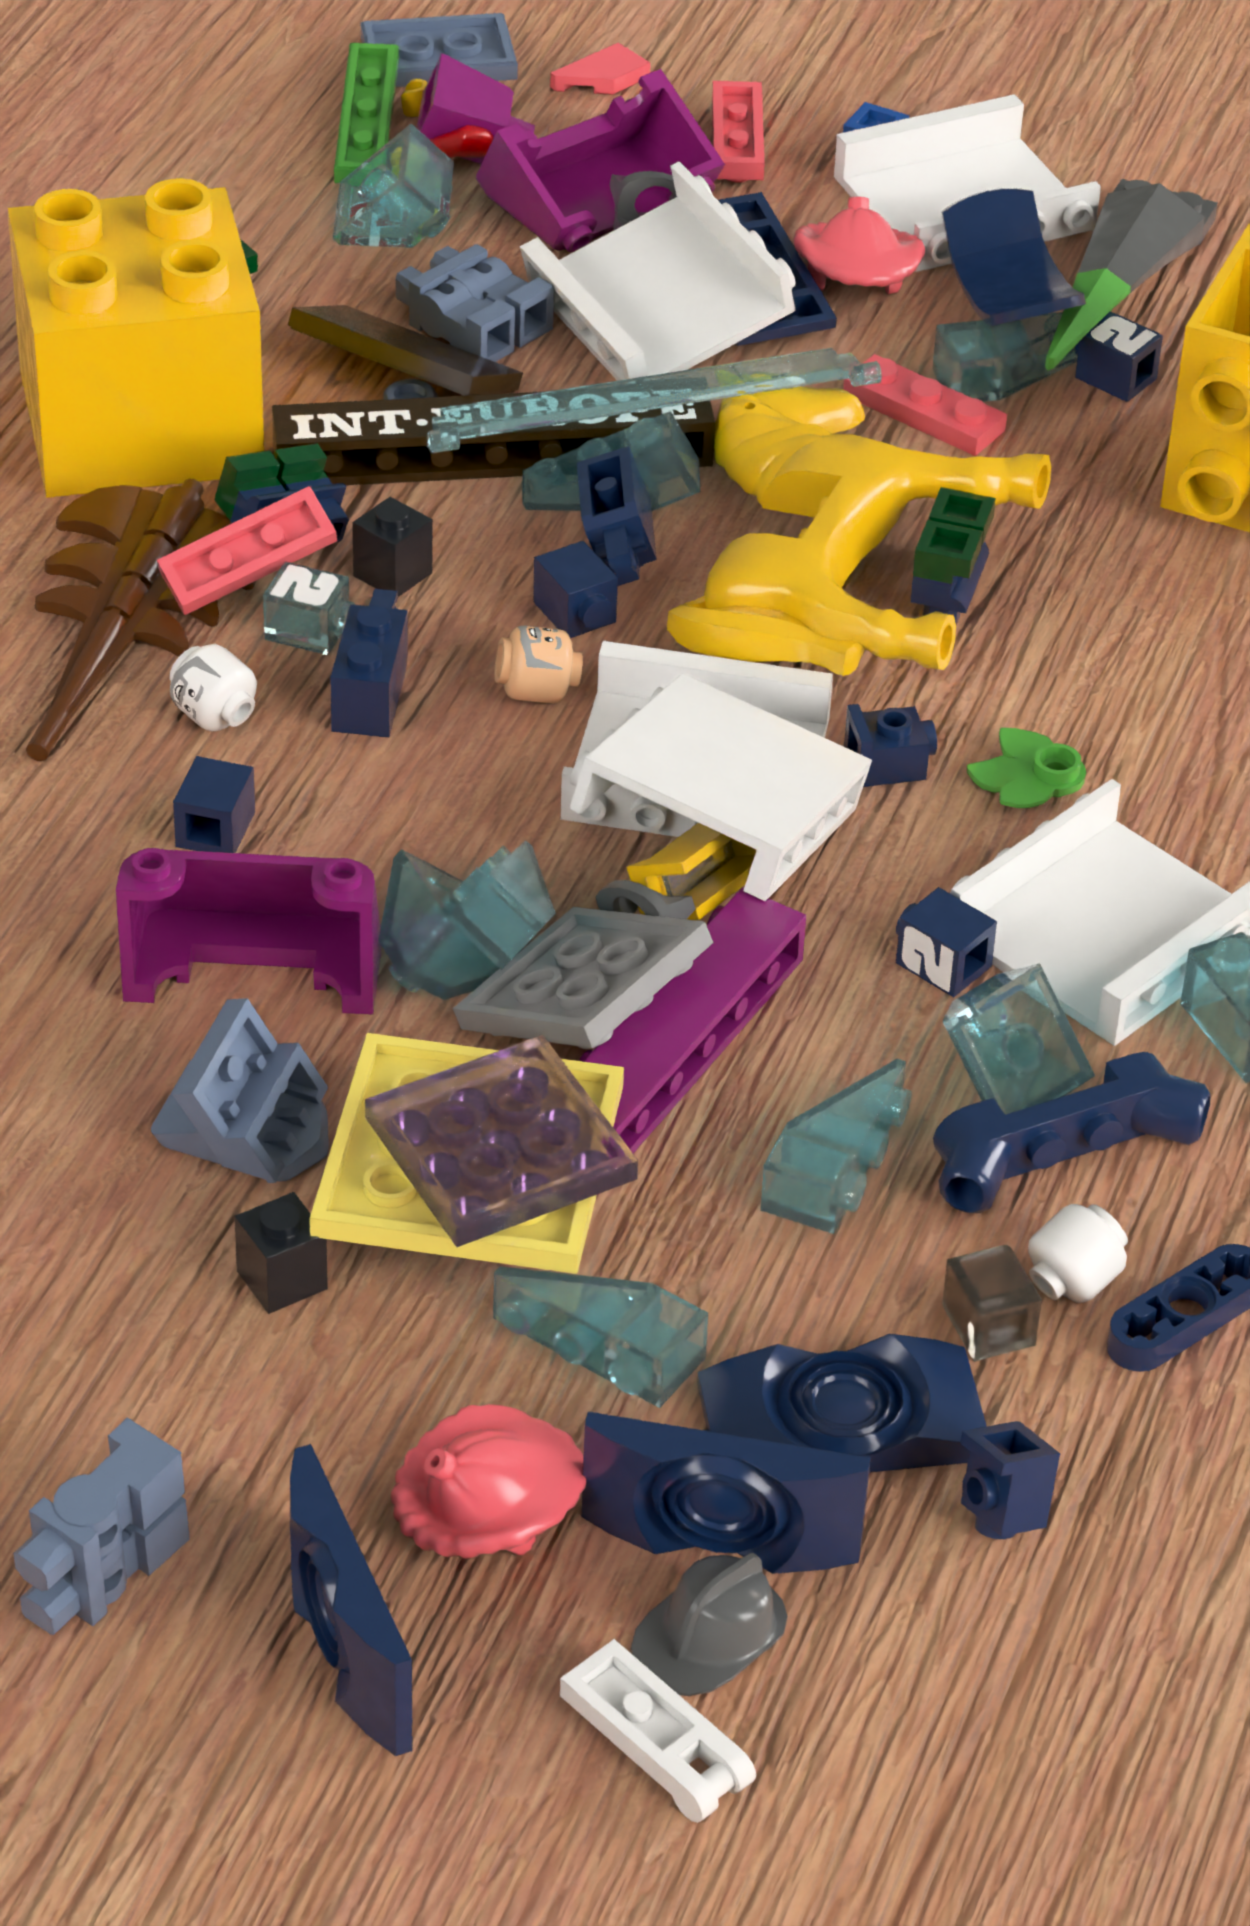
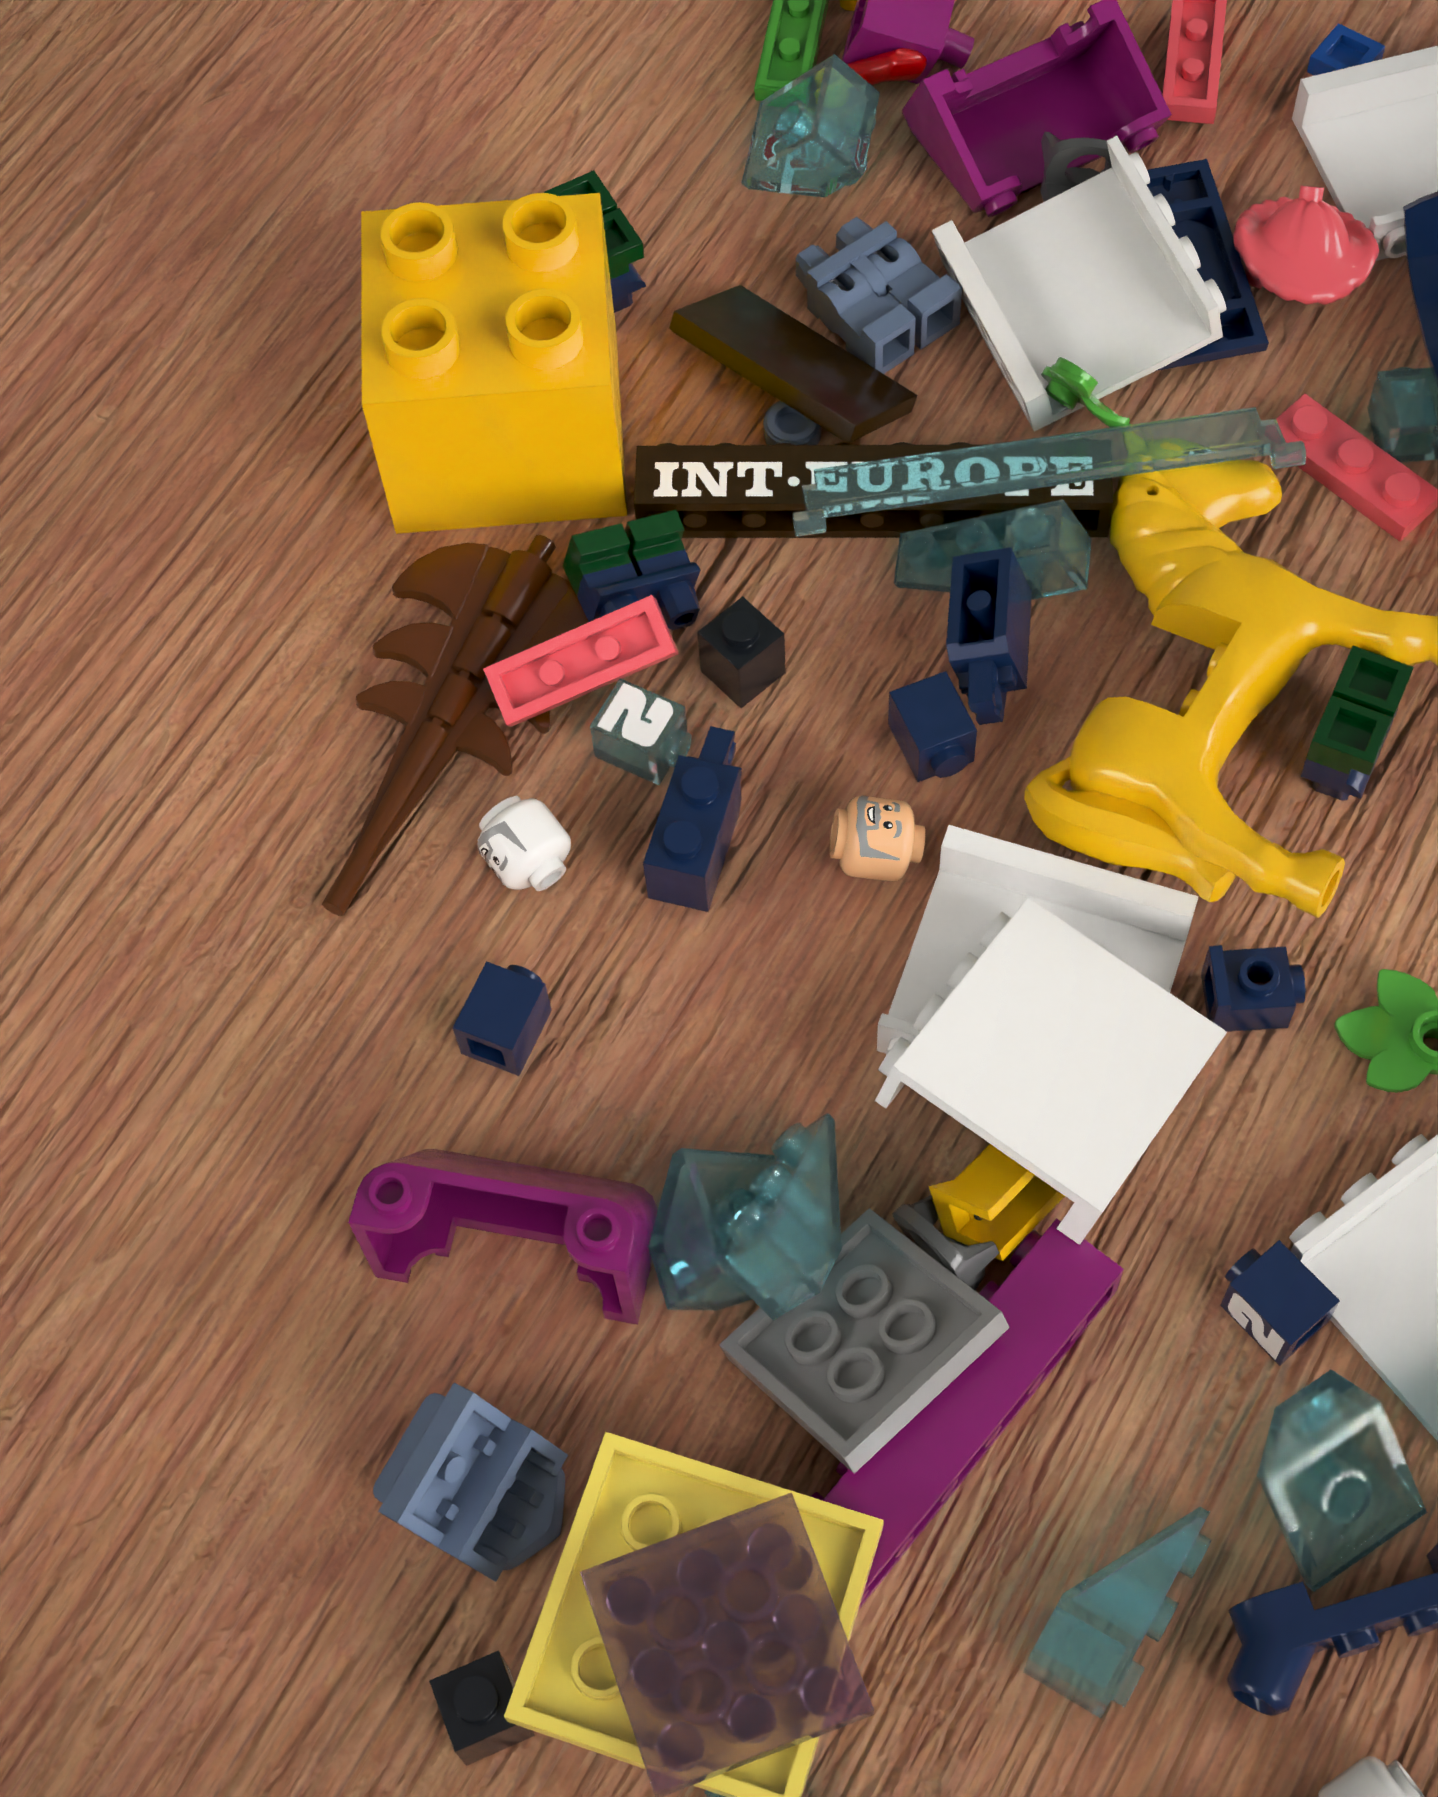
camera: 15 degrees right, 20 degrees up
(668, 349) = (1073, 385): none -> bright green plate

